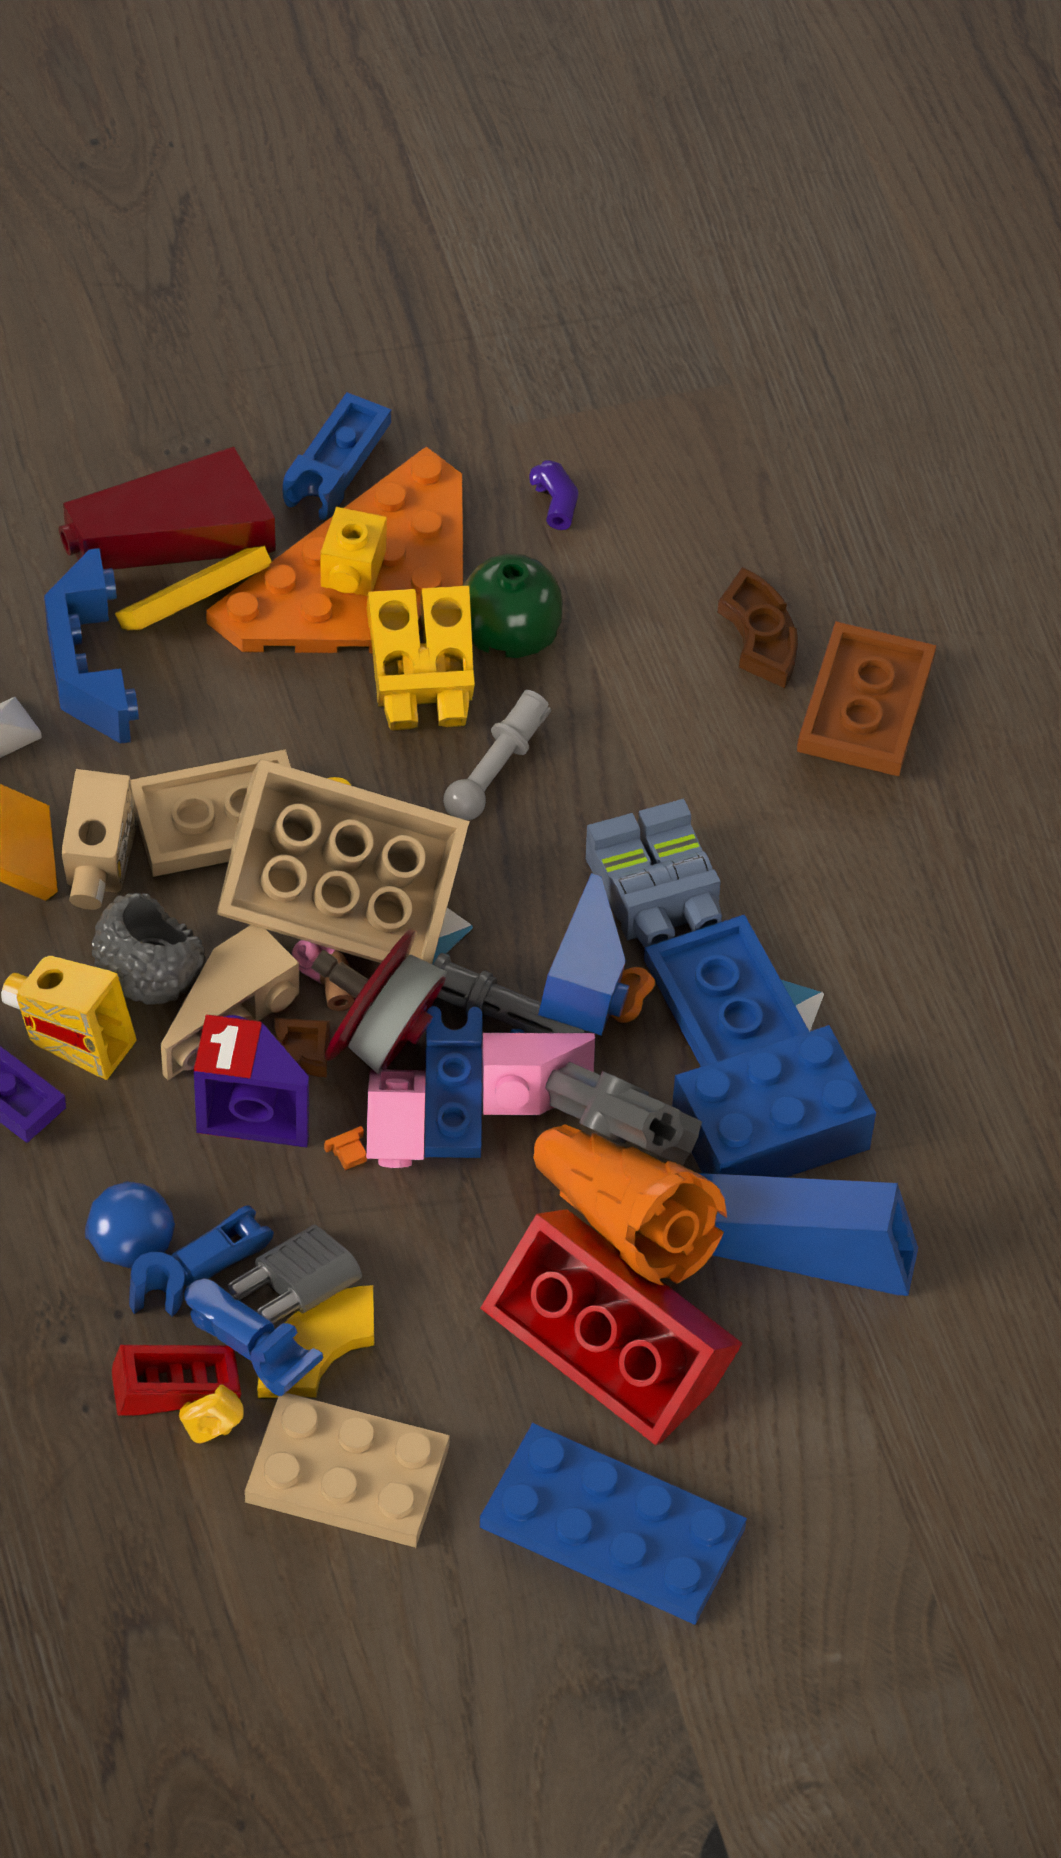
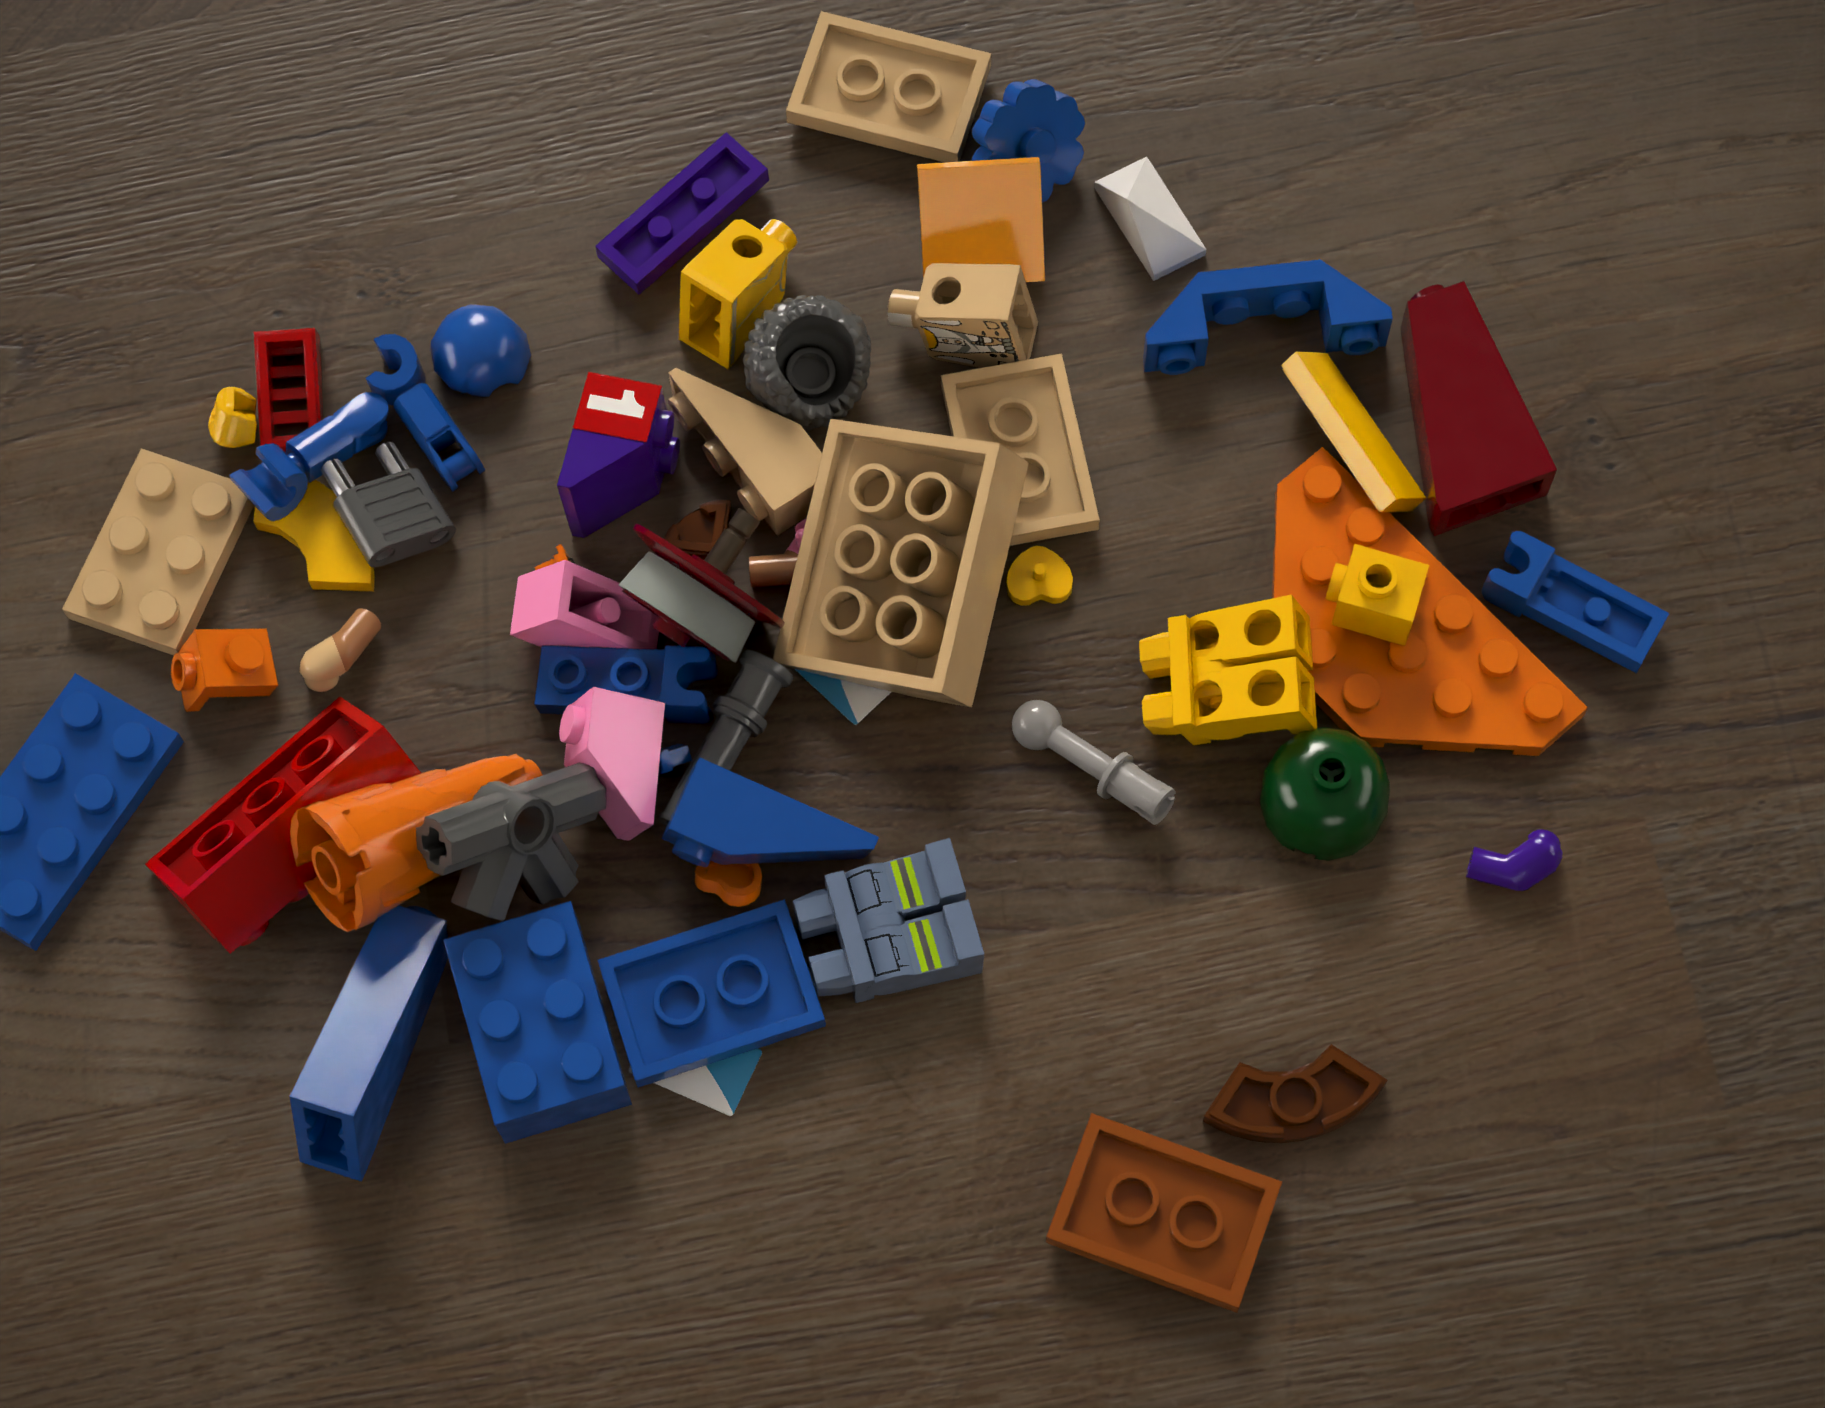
camera: 100 degrees right, 15 degrees up
(444, 1301) = (337, 653): none -> arm
(466, 1396) = (223, 666): none -> orange bracket

